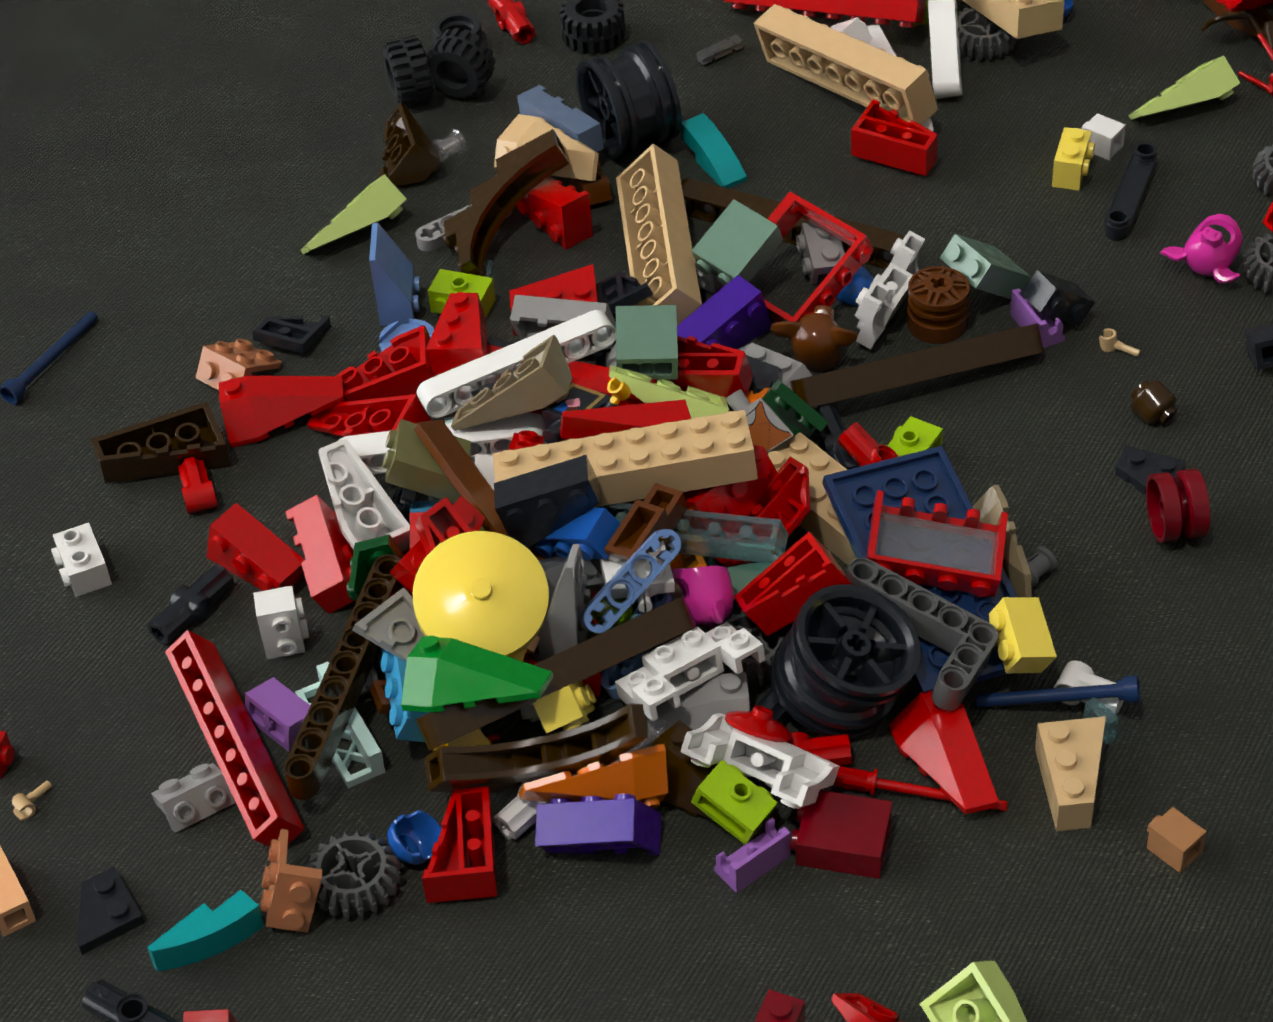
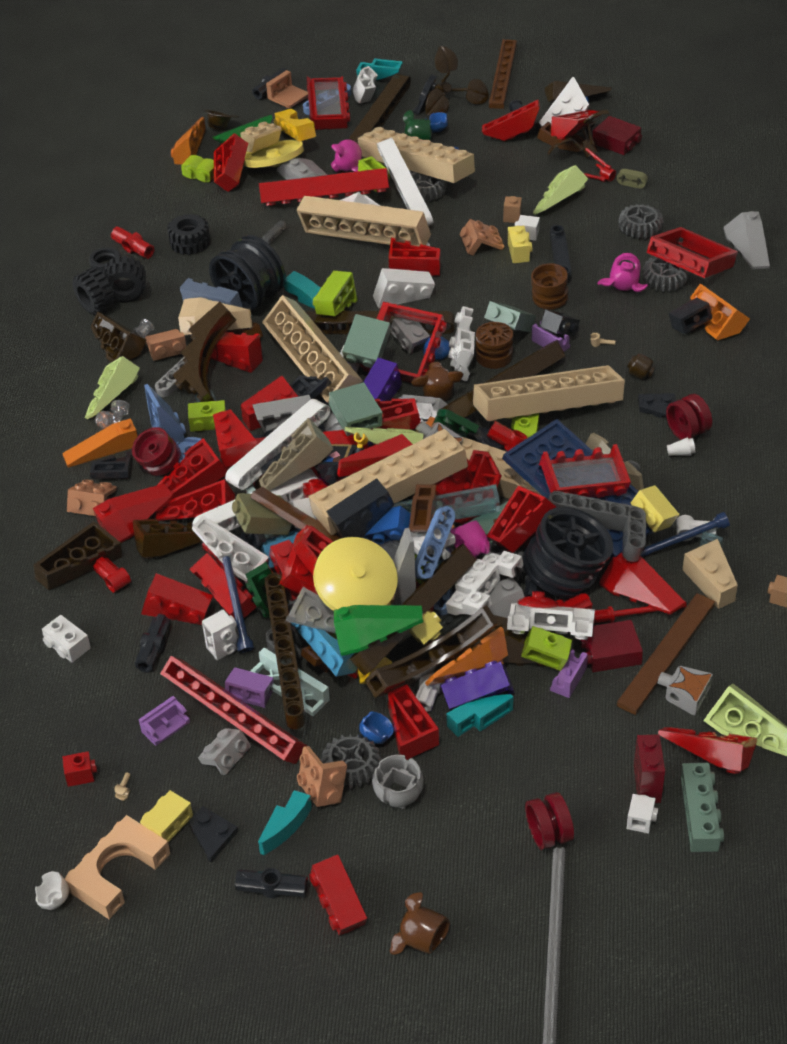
camera: 25 degrees left, 0 degrees up
(52, 866) = (168, 815): none -> light yellow brick
(137, 723) = (164, 721): none -> medium lavender hinge
(287, 453) = (160, 539): none -> dark brown wedge
(306, 293) = (108, 441): none -> orange wedge
(312, 645) = (244, 643): none -> dark blue piece
(323, 260) = (107, 418): none -> clear arm
(354, 326) = (156, 451): none -> dark red wheel
(383, 917) = (401, 771): none -> light grey piece
(464, 173) = (166, 344): none -> nougat bracket
(581, 869) = (479, 713): none -> teal slope
(740, 164) = (335, 294): none -> lime wedge
(854, 178) = (402, 286): none -> white wedge
(923, 942) = (686, 688): none -> light grey torso
(926, 875) = (665, 654): none -> reddish brown tile
(972, 402) = (548, 393): none -> tan brick
(1024, 128) = (476, 233): none -> nougat bracket
(1077, 236) = (549, 286): none -> reddish brown wheel
(1093, 99) = (512, 209): none -> medium nougat brick
(1147, 552) = (681, 448): none -> white cone

